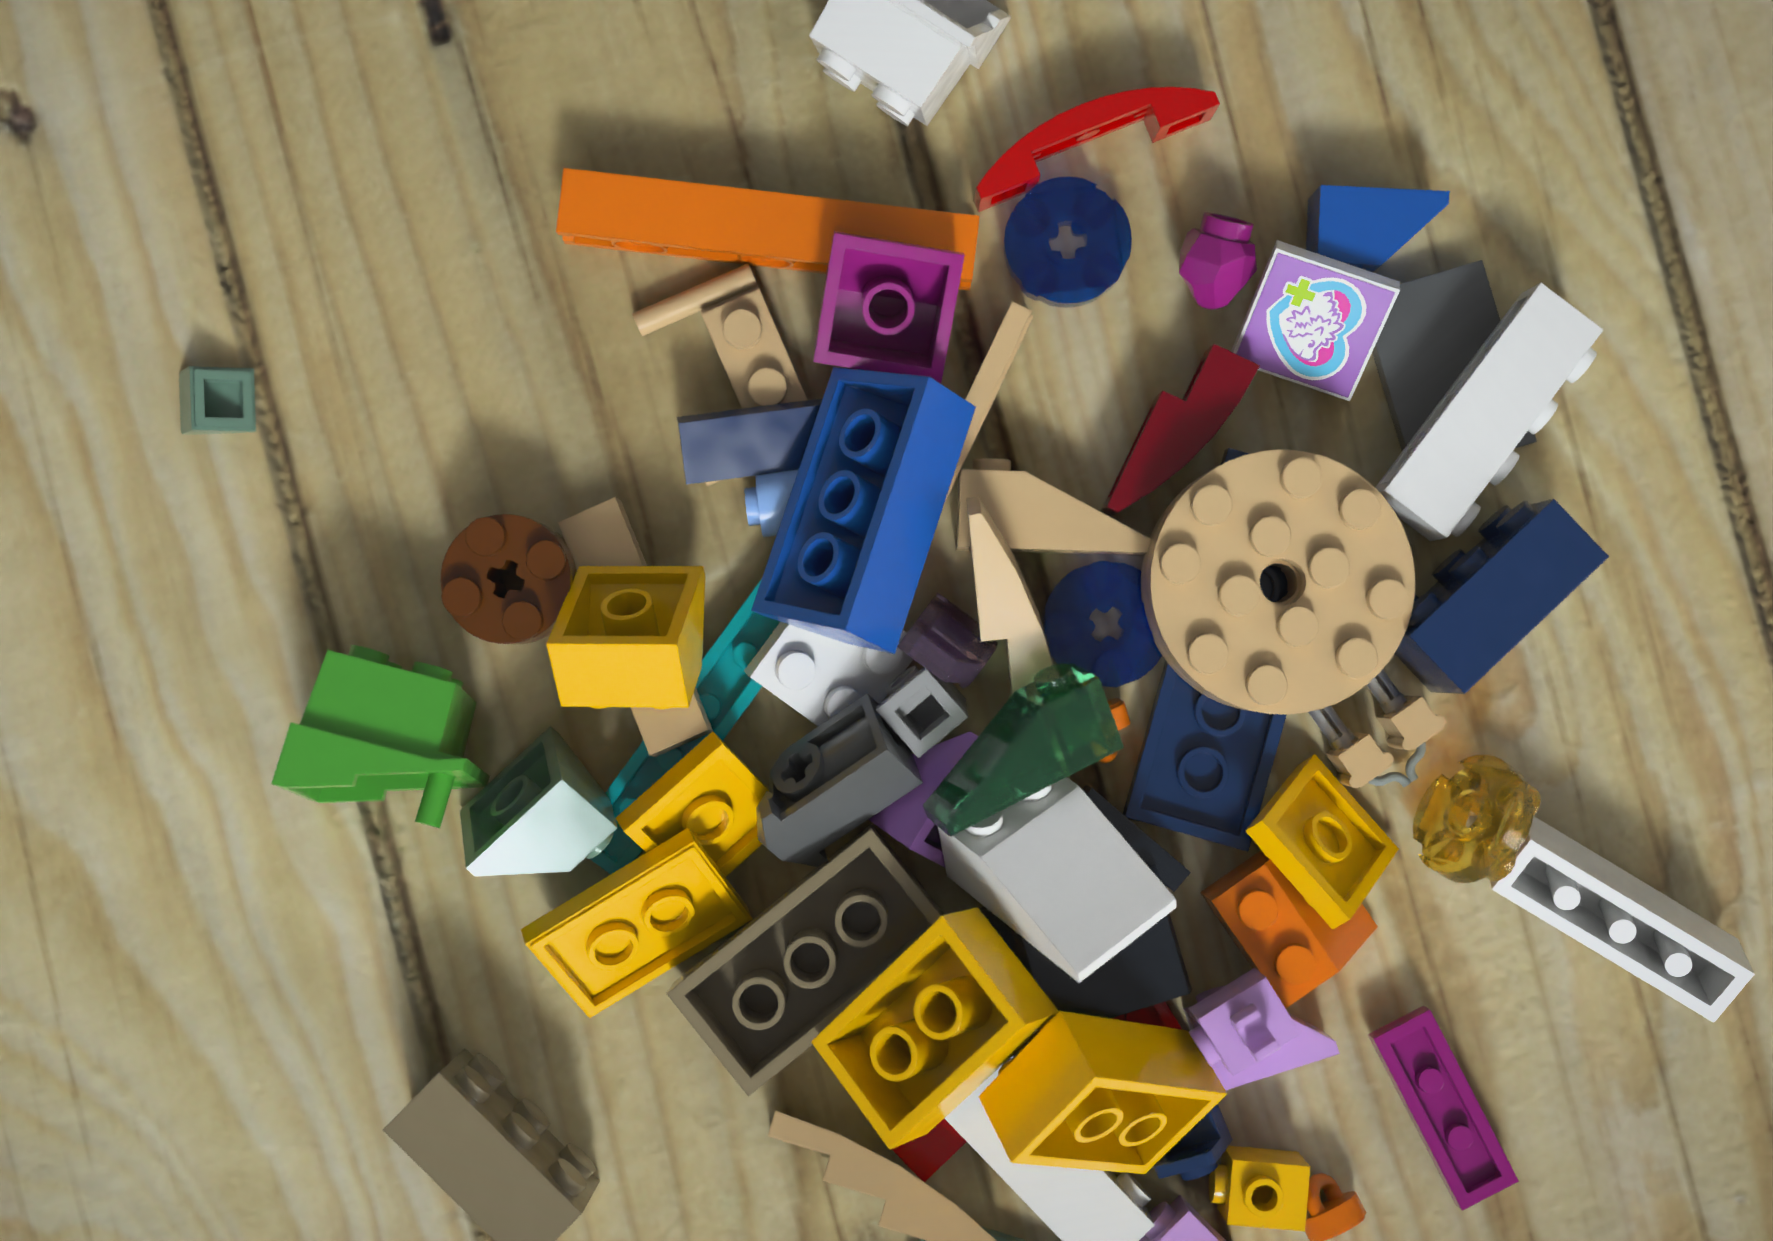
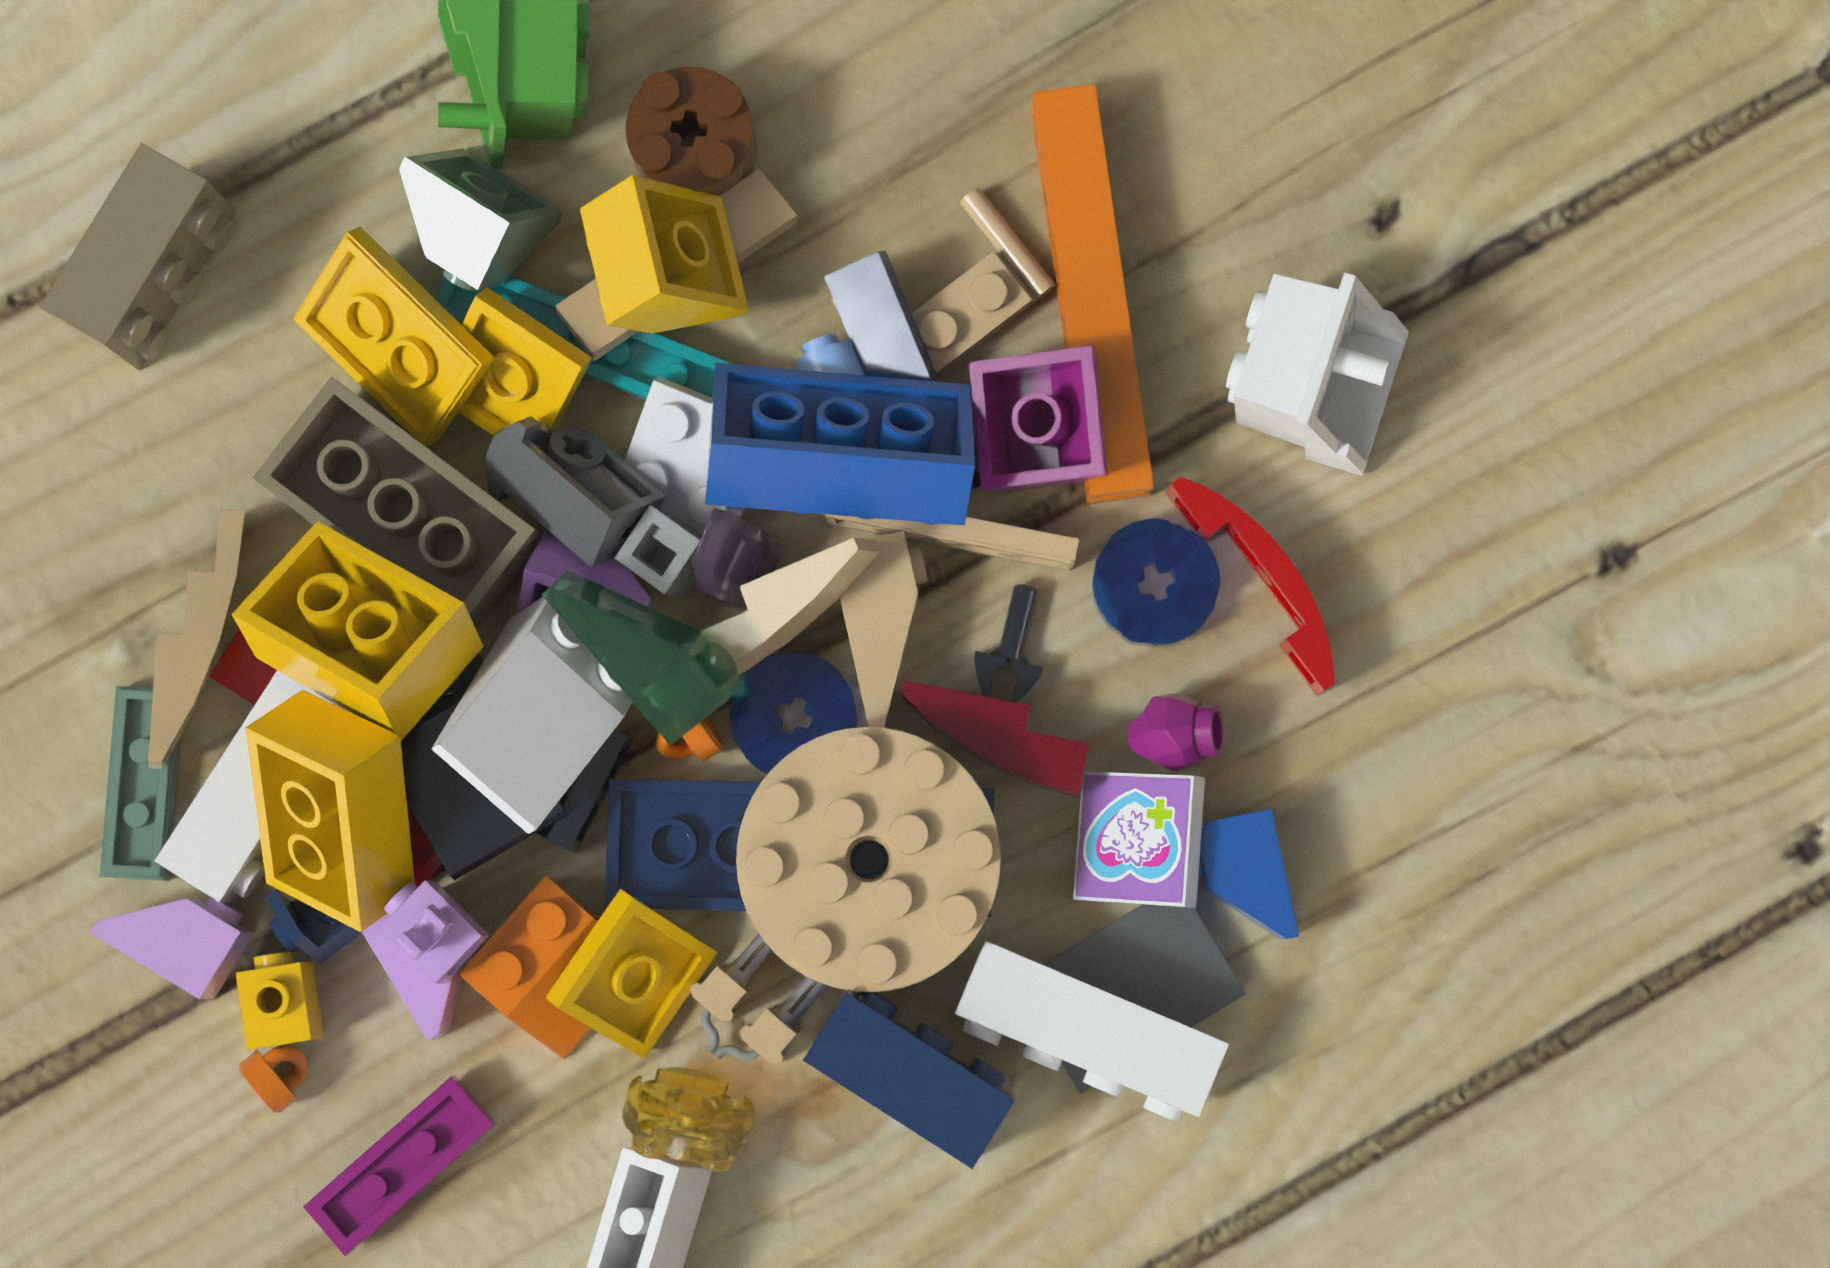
camera: 80 degrees right, 5 degrees down
(1093, 398) = (1012, 646): none -> black bar

